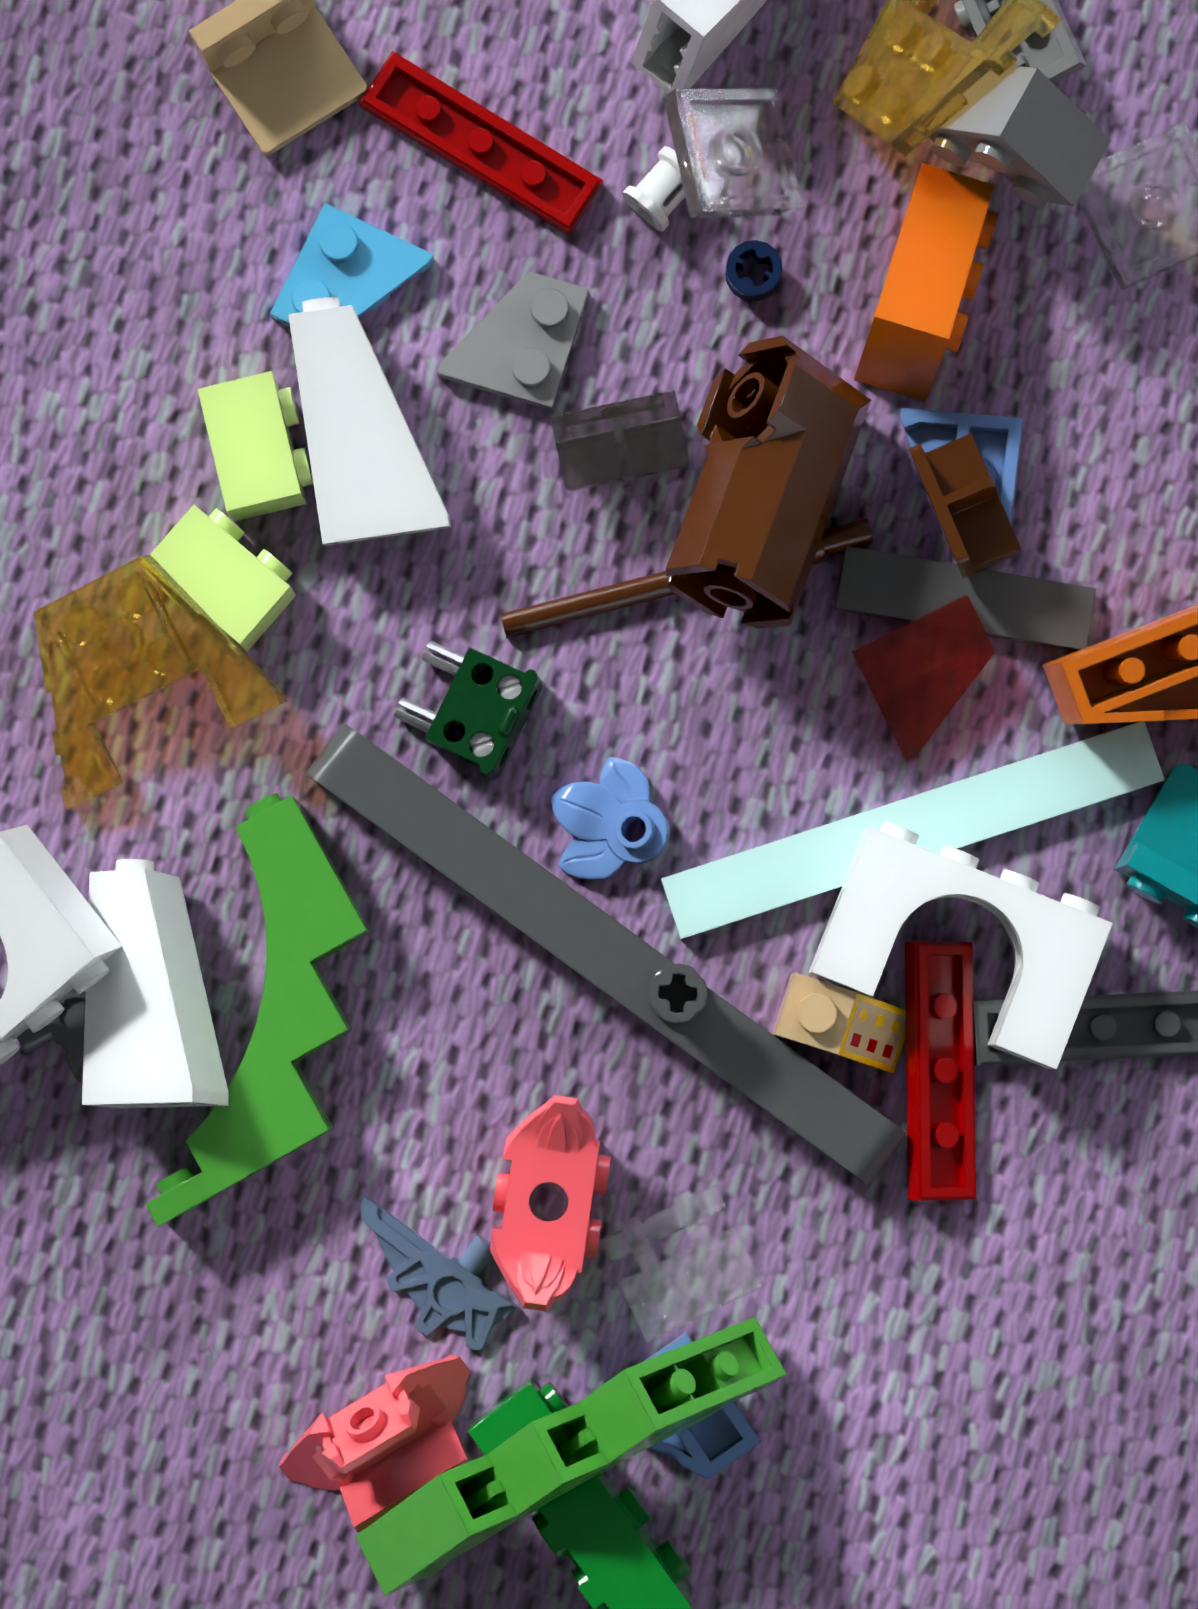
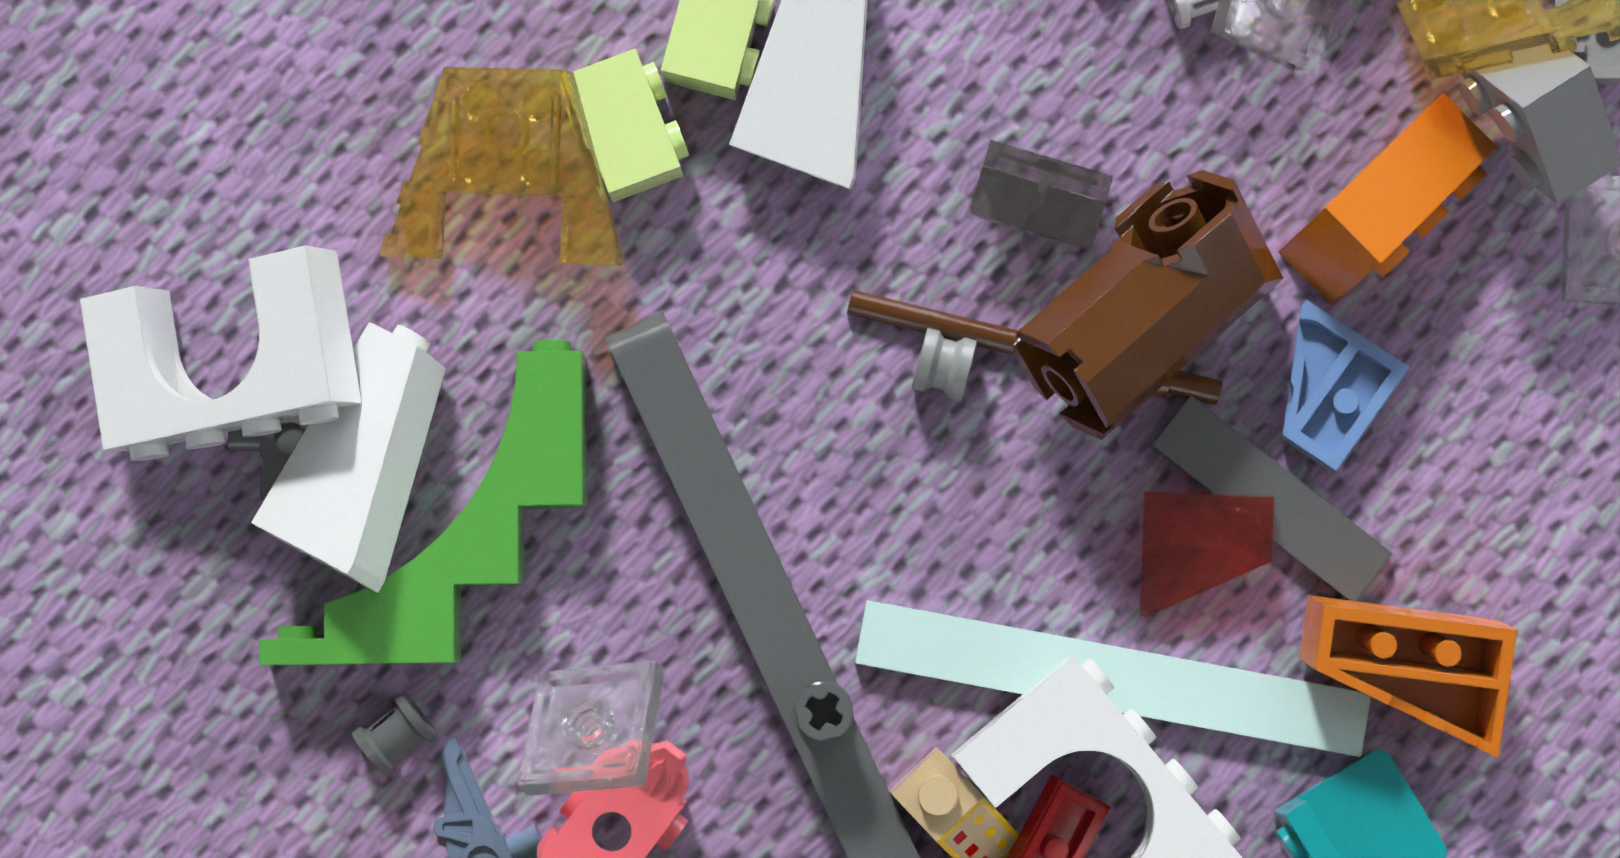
camera: 25 degrees right, 0 degrees up
(311, 1223) = (395, 734): none -> dark grey bush
(481, 1121) = (591, 728): none -> clear plate
(488, 712) = (794, 372): dark green piece -> none
(521, 342) = (1002, 60): light grey wing -> none
(600, 820) = (842, 518): medium blue plate -> none
(616, 635) = (944, 364): none -> light grey wheel
(762, 254) = (1258, 97): dark blue bush -> none
(966, 504) = (1317, 417): reddish brown panel -> none

